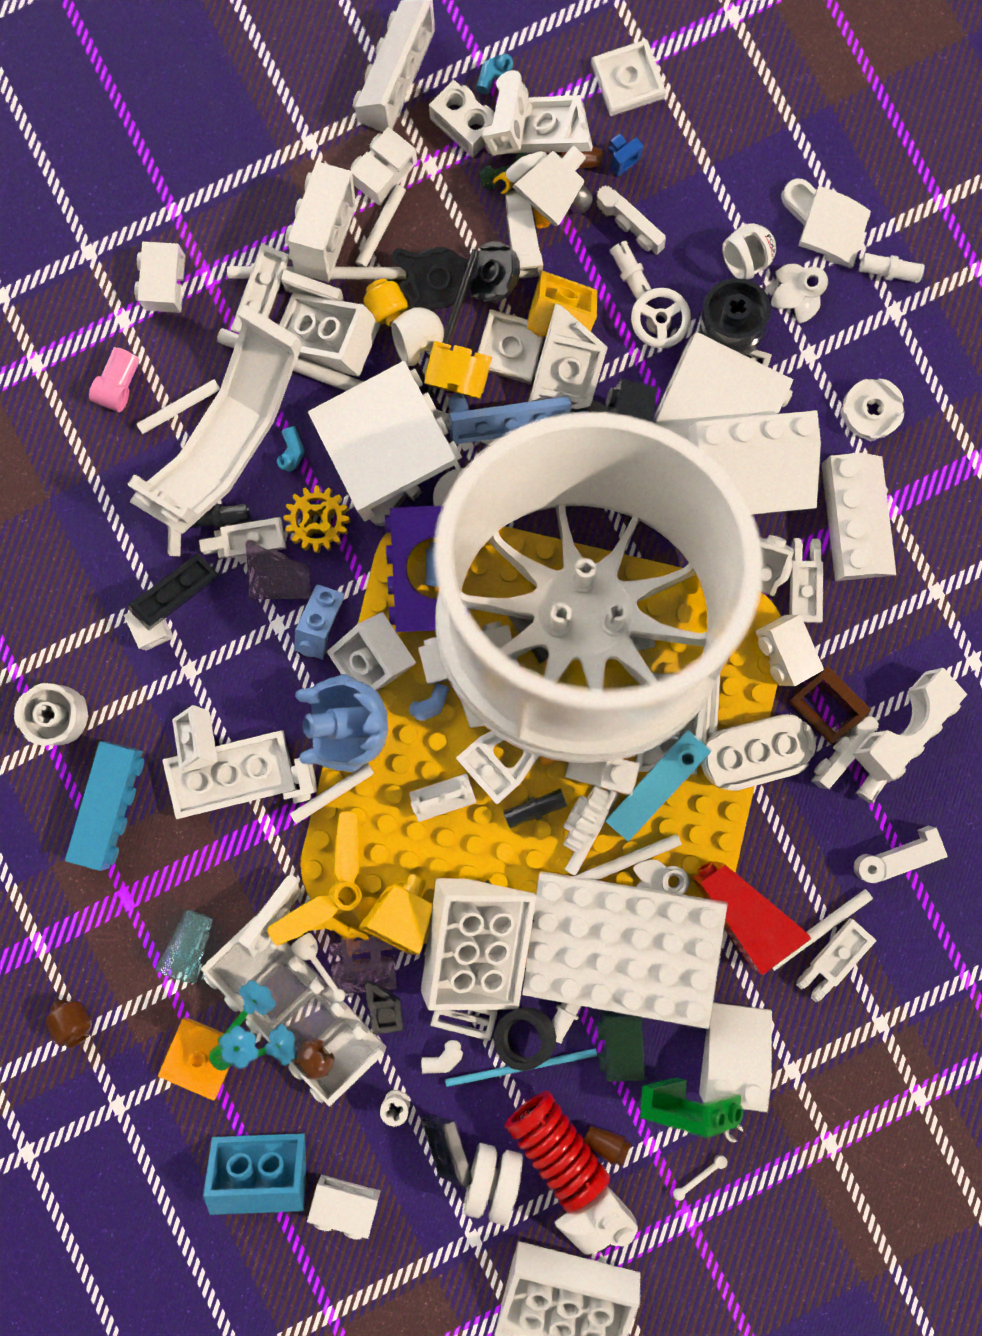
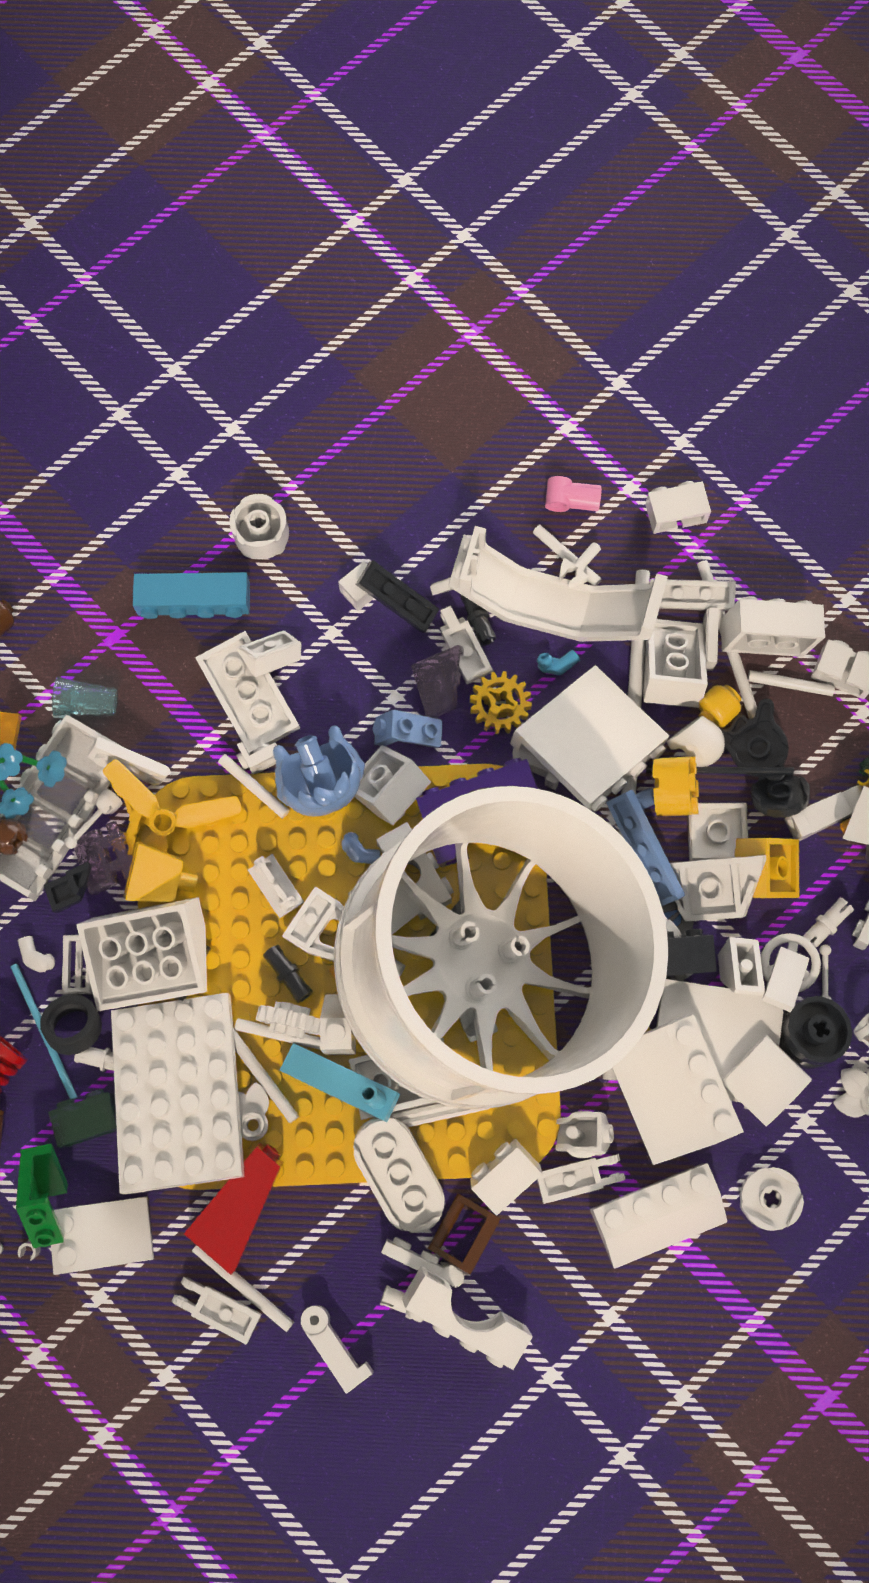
camera: 75 degrees right, 10 degrees down
(194, 396) = (578, 566): none -> white bar
(655, 282) = (825, 950): none -> white hinge
(655, 363) = (741, 966): none -> white slope
(680, 325) = (785, 979): none -> white tile
(770, 374) = (766, 1080): none -> white slope

